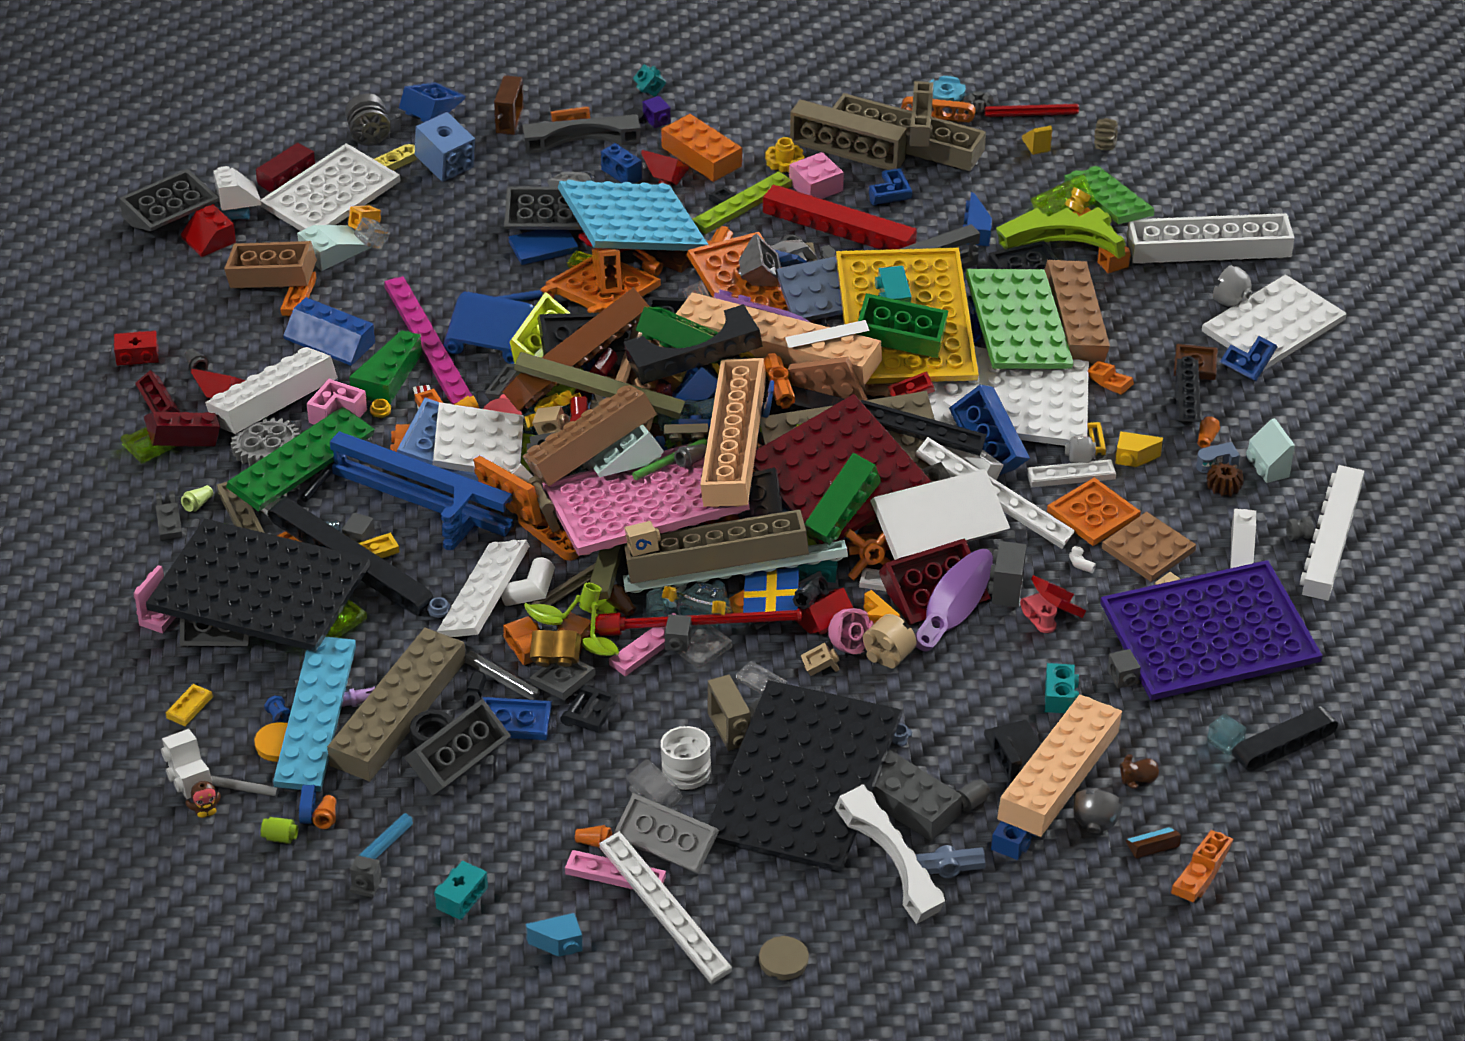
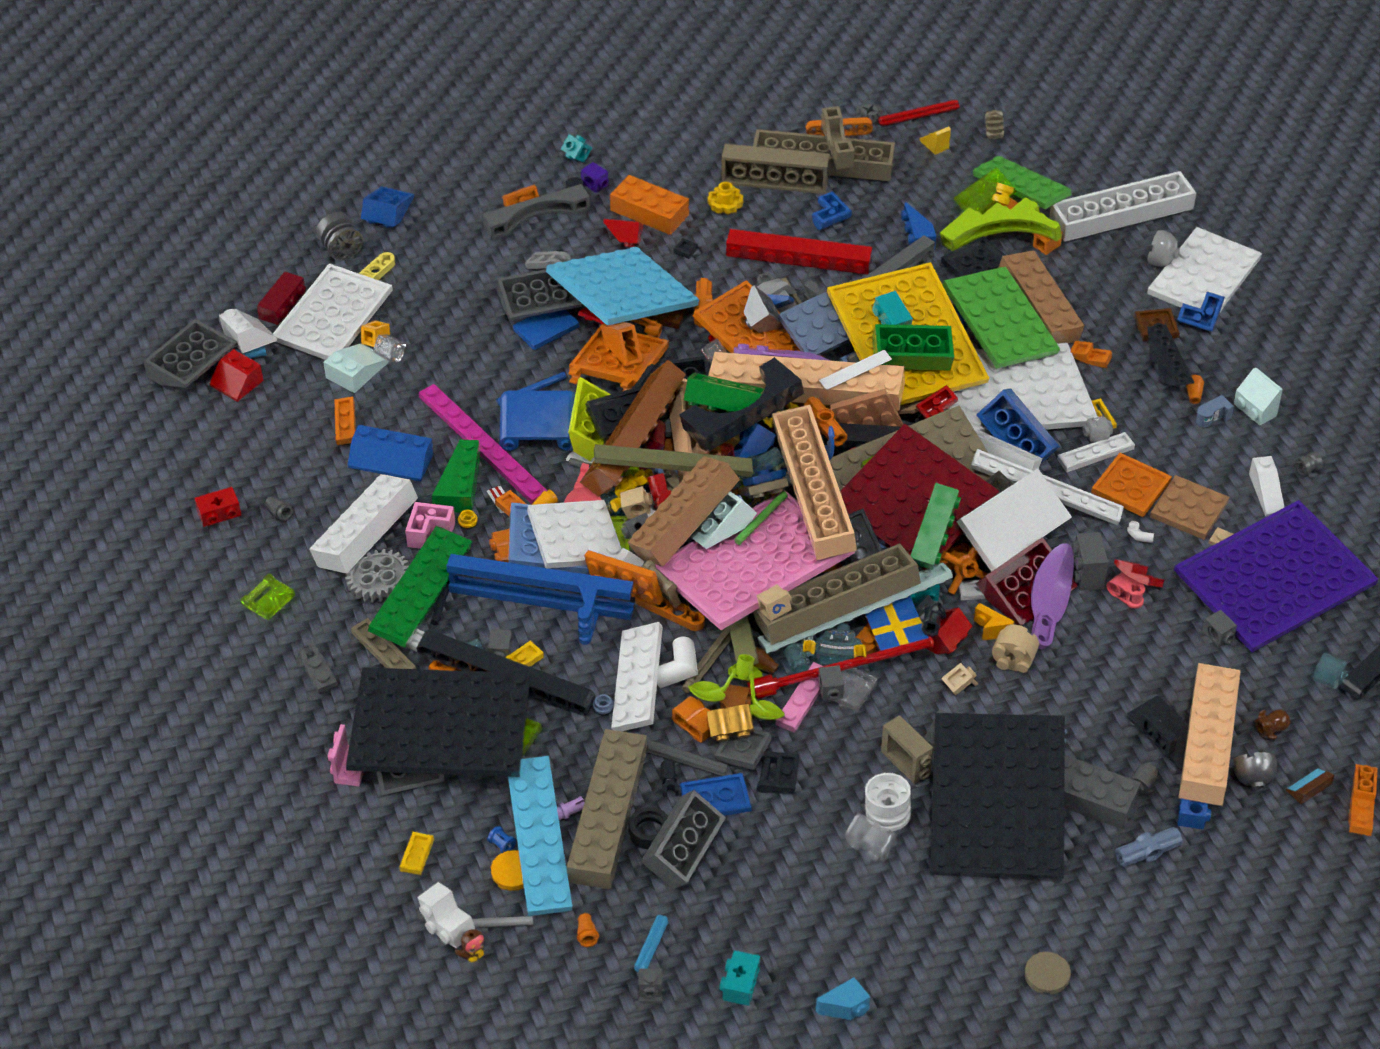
camera: 15 degrees left, 5 degrees up
(155, 393) = (255, 551): dark red slope -> none
(182, 428) = (297, 579): dark red slope -> none
(195, 498) = (335, 647): yellowish green cone -> none
(214, 383) = (309, 528): red slope -> none
(270, 264) = (311, 398): medium nougat brick -> none
(279, 830) = (553, 958): lime brick -> none
(307, 804) = (567, 926): blue beam -> none
(444, 146) = (422, 249): medium blue brick -> none
(505, 377) = (570, 469): dark grey plate -> none
(509, 104) = (462, 197): reddish brown window -> none
(577, 258) = (584, 334): clear neon green tile -> none
(592, 835) = (835, 896): orange cone -> none
(600, 869) = (869, 927): bright pink plate -> none
(621, 164) = (585, 235): blue brick -> none
(665, 907) = (928, 950): white tile -> none
(666, 833) = (898, 879): light grey tile -> none
(688, 455) = (777, 512): dark grey cone -> none
(739, 203) = (705, 250): lime plate -> none
(757, 677) = (916, 709): clear plate -> none
(816, 176) = (762, 213): bright pink brick -> none
(847, 630) = (977, 645): bright pink cylinder -> none
(863, 814) = (1139, 883): white arch -> none
(923, 427) = (973, 440): black tile -> none
(948, 89) = (846, 106): medium azure plate -> none
(1060, 687) = (1174, 659): teal brick -> none
(1137, 449) = (1142, 417): yellow slope -> none
(1225, 479) = (1228, 430): reddish brown gear -> none
(1332, 533) = (1337, 461): white brick -> none

